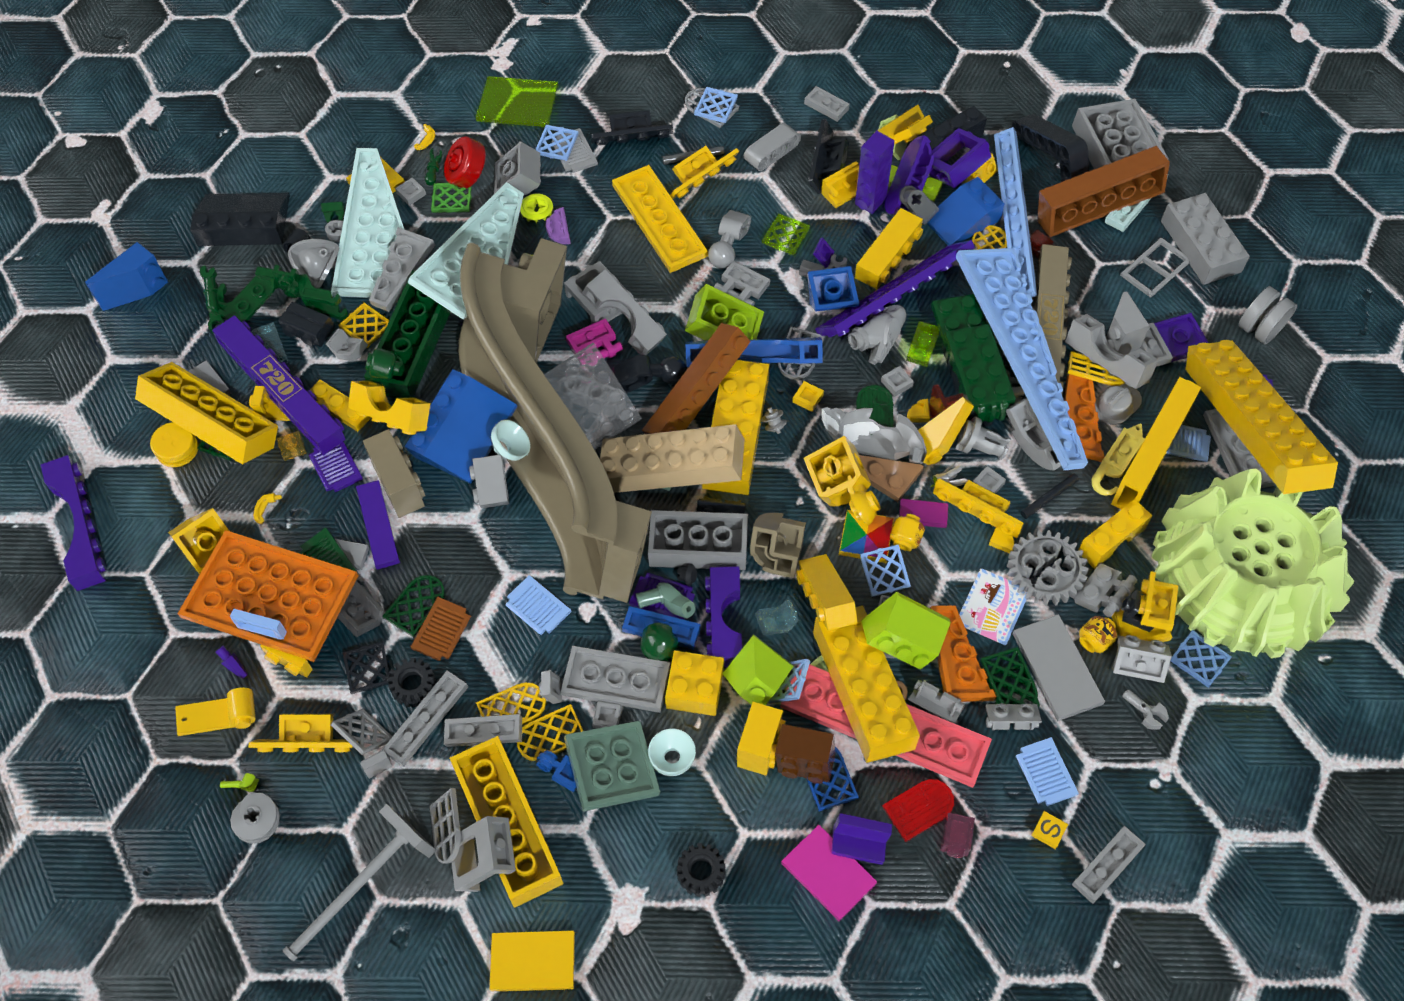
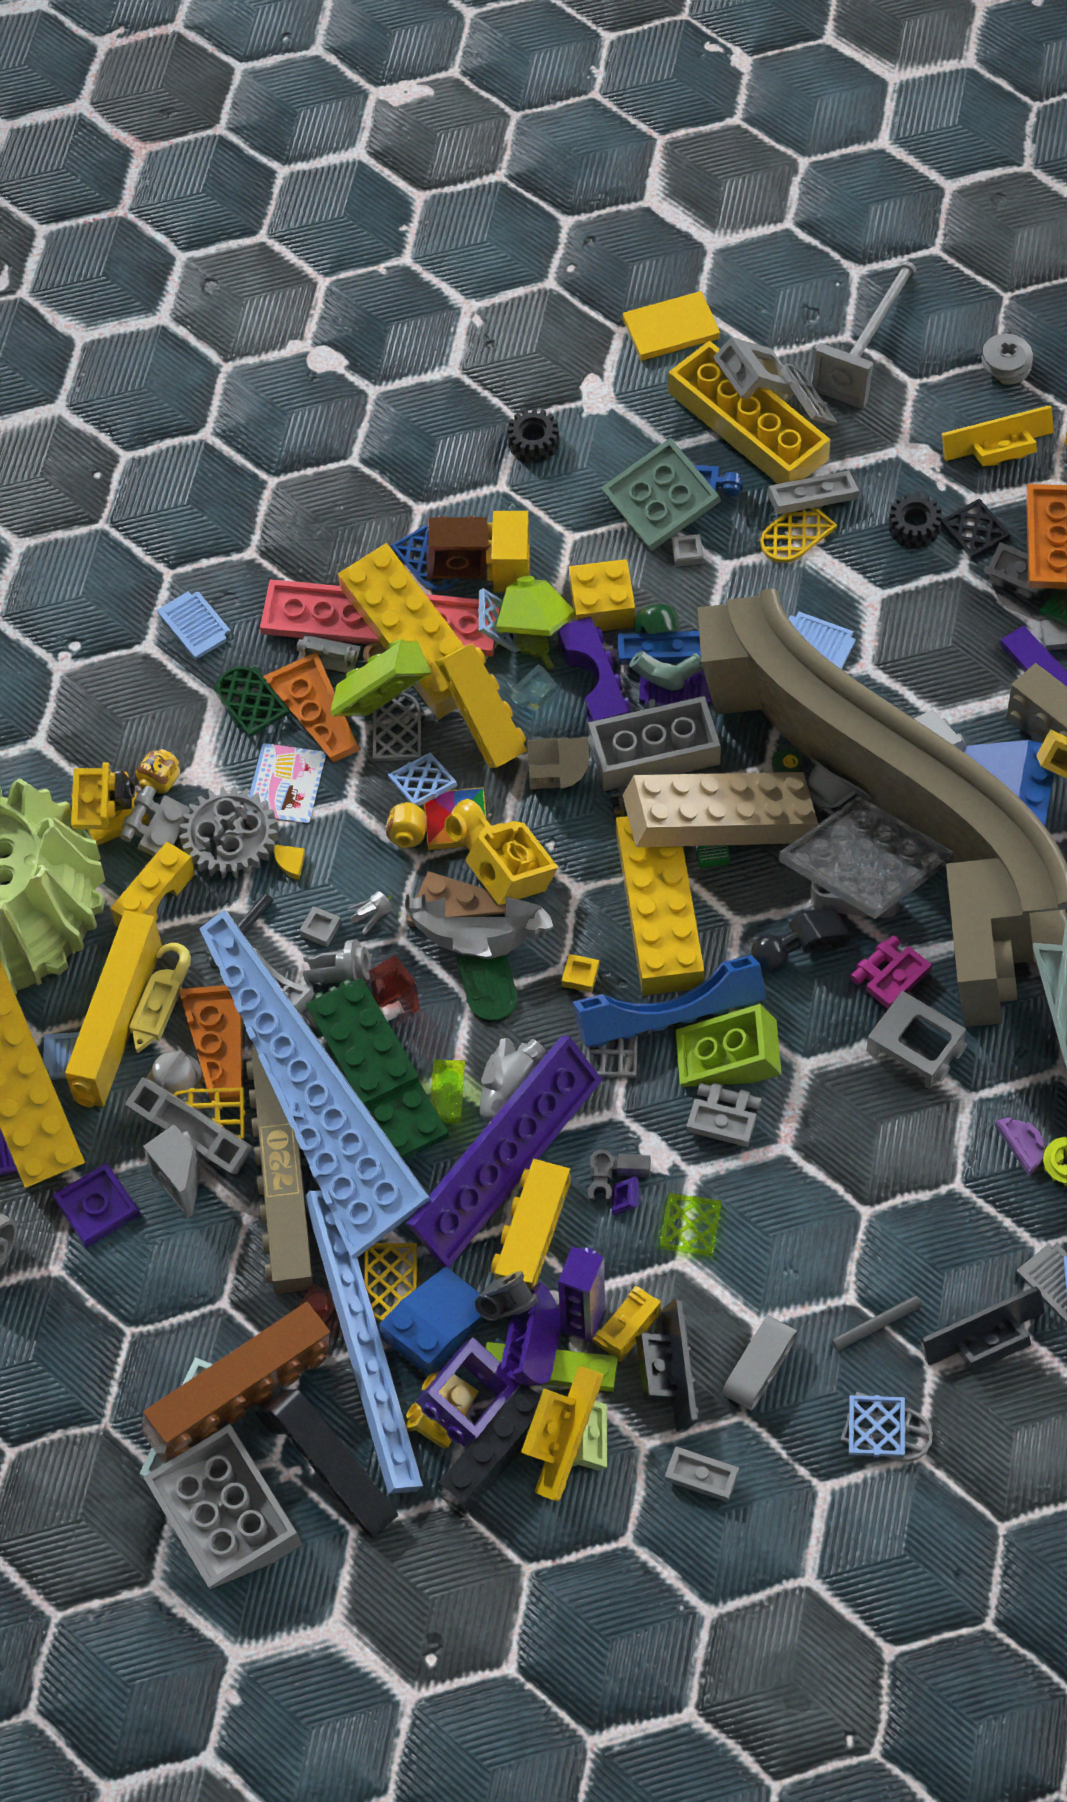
camera: 165 degrees right, 0 degrees up
(248, 783) = (1037, 388): lime hand -> none
(353, 739) = (920, 449): light grey window -> none
(376, 764) = (910, 434): light grey tile -> none
(397, 602) = (960, 579): dark green window -> none
(425, 718) = (882, 491): light grey plate -> none
(441, 630) = (912, 585): dark orange window -> none
(548, 726) = (706, 525): yellow window -> none
(551, 686) = (759, 552): light grey plate -> none
(607, 292) = (894, 1006): light grey arch -> none
(616, 679) = (692, 580): light grey plate -> none
(659, 218) = (883, 1190): yellow plate -> none
(668, 741) = (601, 514): light aqua piece -> none
(697, 167) = (854, 1287): yellow bracket -> none
(699, 381) = (724, 918): dark orange brick -> none
(732, 226) = (767, 1147): light grey beam -> none
(774, 421) = (613, 924): light grey wheel -> none
(830, 878) = (403, 471): dark pink tile -> none
(832, 289) = (589, 1118): blue slope -> none
(860, 838) = (378, 500): dark purple panel -> none
(897, 381) = (469, 1026): light grey plate -> none
(919, 412) = (431, 998): yellow tile -> none
(920, 807) = (323, 554): red window -> none
(930, 513) = (393, 865): magenta tile -> none
(943, 430) = (398, 939): yellow slope -> none
(957, 835) = (278, 531): clear pink brick -> none
(981, 503) = (323, 884): yellow bracket -> none
(1022, 715) = (240, 656): light grey hinge -> none
(1049, 830) = (182, 567): yellow tile -> none
(1058, 667) = (198, 731): light grey tile -> none
(1108, 864) = (116, 548): light grey plate -> none
(1142, 658) = (117, 754): light grey bracket -> none
(1144, 257) = (159, 1326): light grey window -> none
(1148, 711) = (89, 701): light grey bar -> none
(1156, 346) = (134, 1174): light grey plate -> none
(1183, 646) = (42, 770): medium blue window -> none
(1205, 238) = (75, 1368): light grey brick -> none

